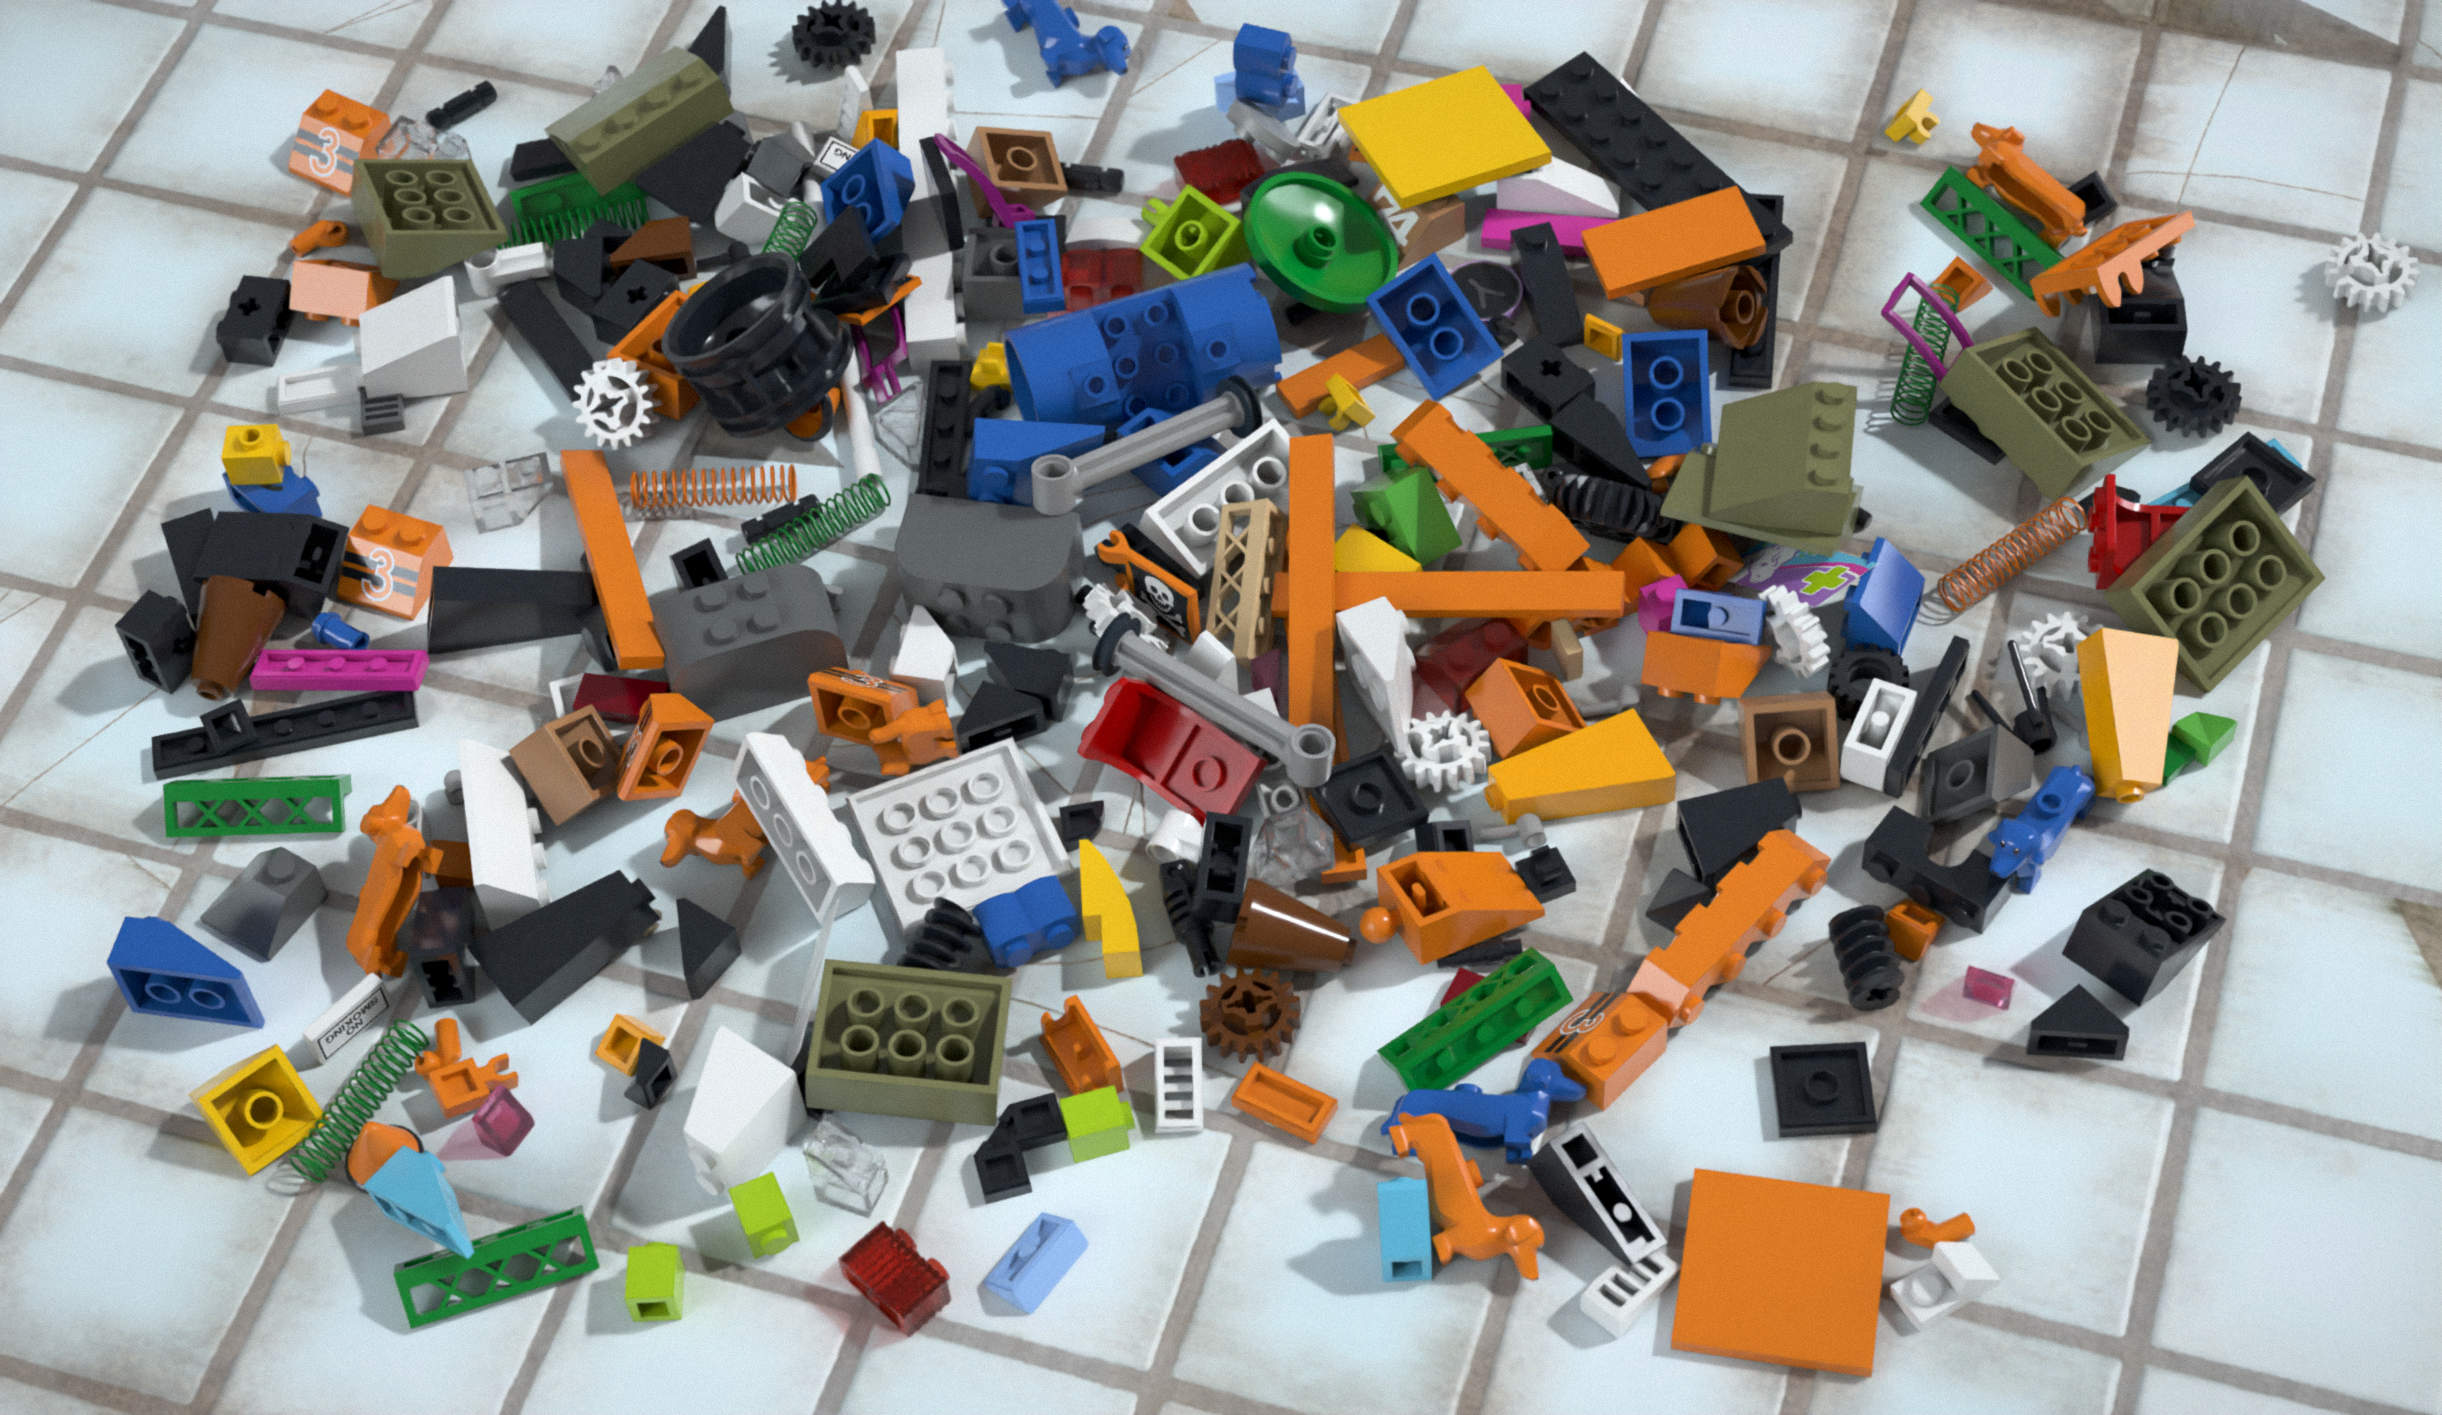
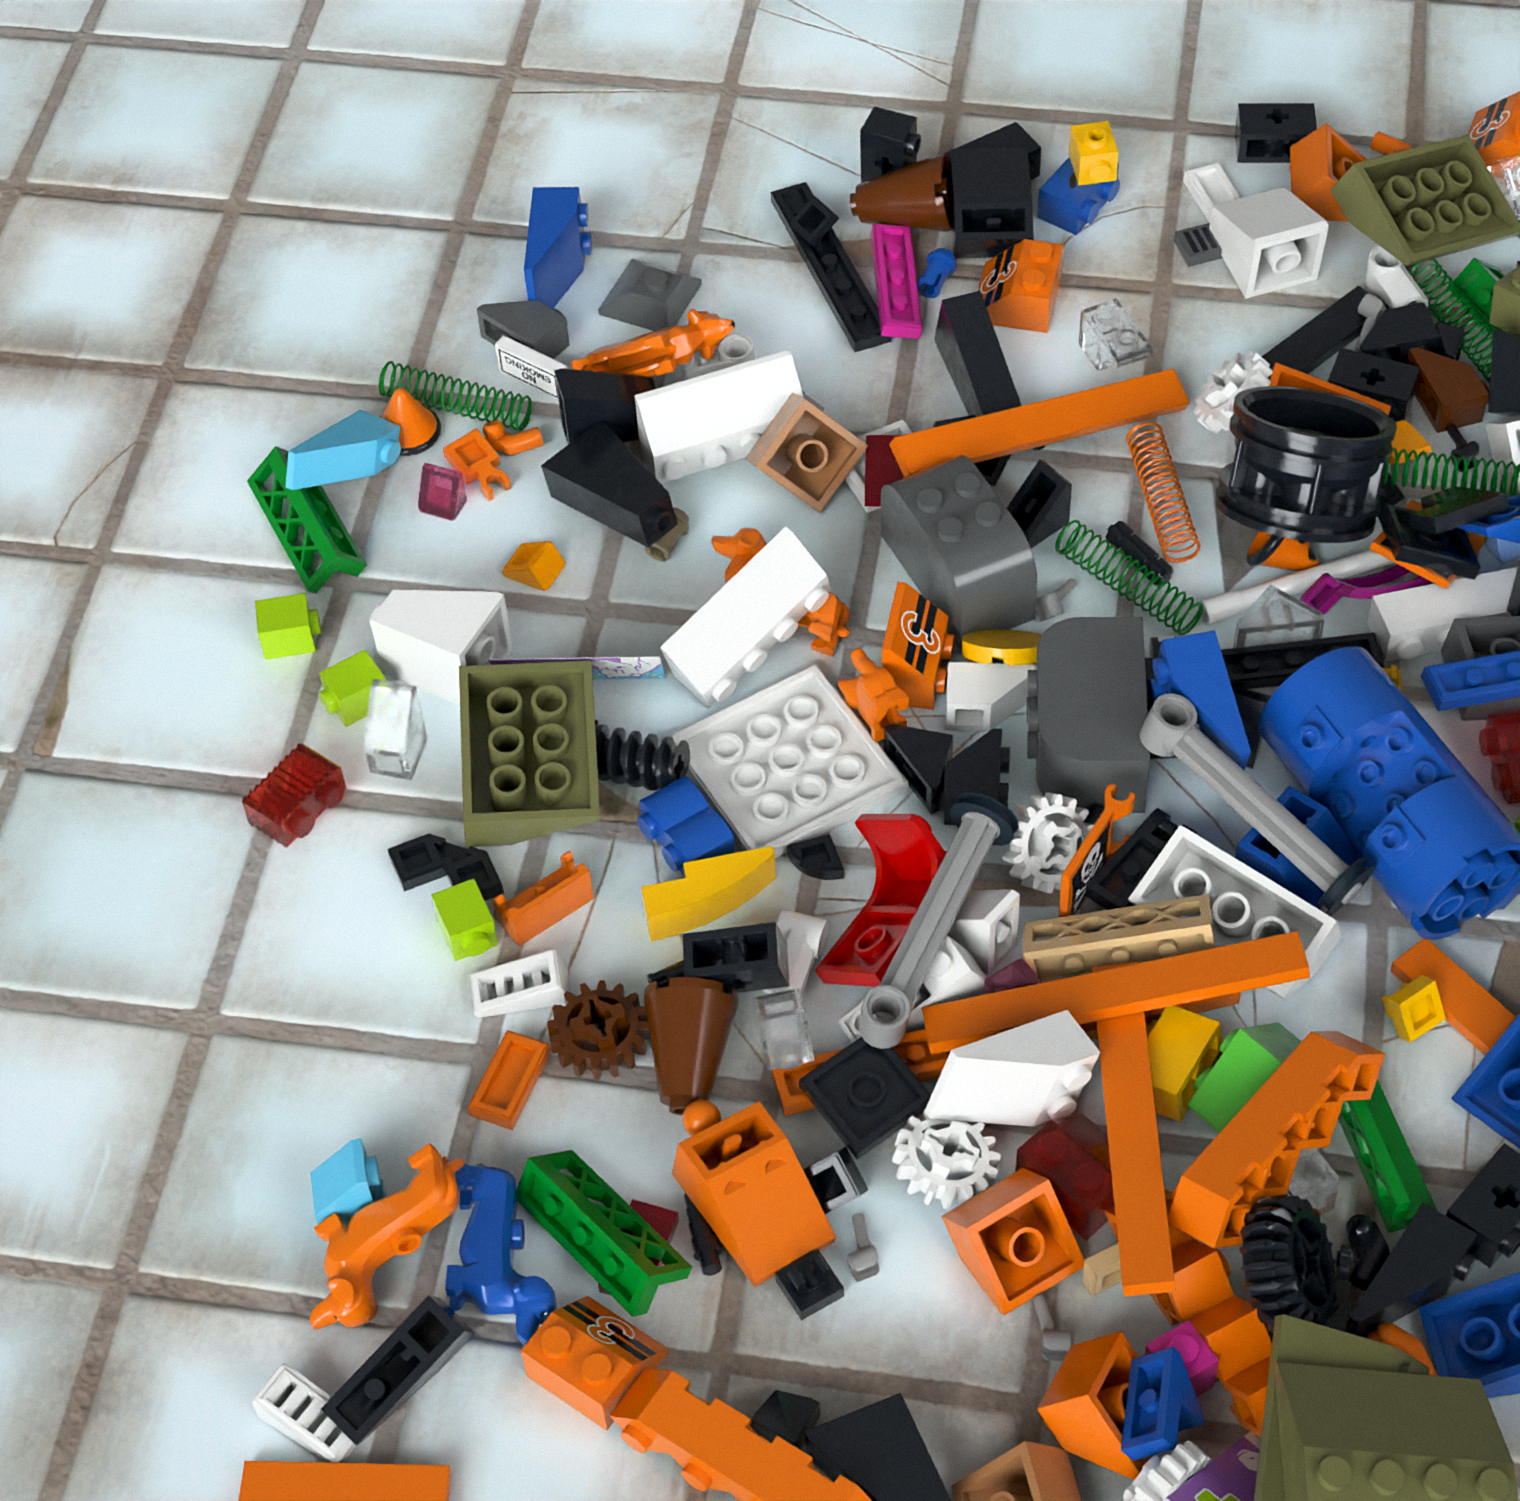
camera: 80 degrees right, 0 degrees up
(256, 788) = (756, 254): green fence -> none
(258, 1108) = (434, 329): yellow slope -> none
(282, 1014) = (526, 323): none -> dark grey slope
(542, 283) = (1372, 309): none -> light grey hand
(653, 1076) = (496, 576): black slope -> none
(662, 748) = (822, 501): orange slope -> none
(706, 947) = (630, 588): black slope -> none
(879, 631) = (1011, 646): none -> yellow tile
(1037, 1262) = (325, 904): light blue slope -> none
(1584, 773) = (946, 1308): light orange slope -> none

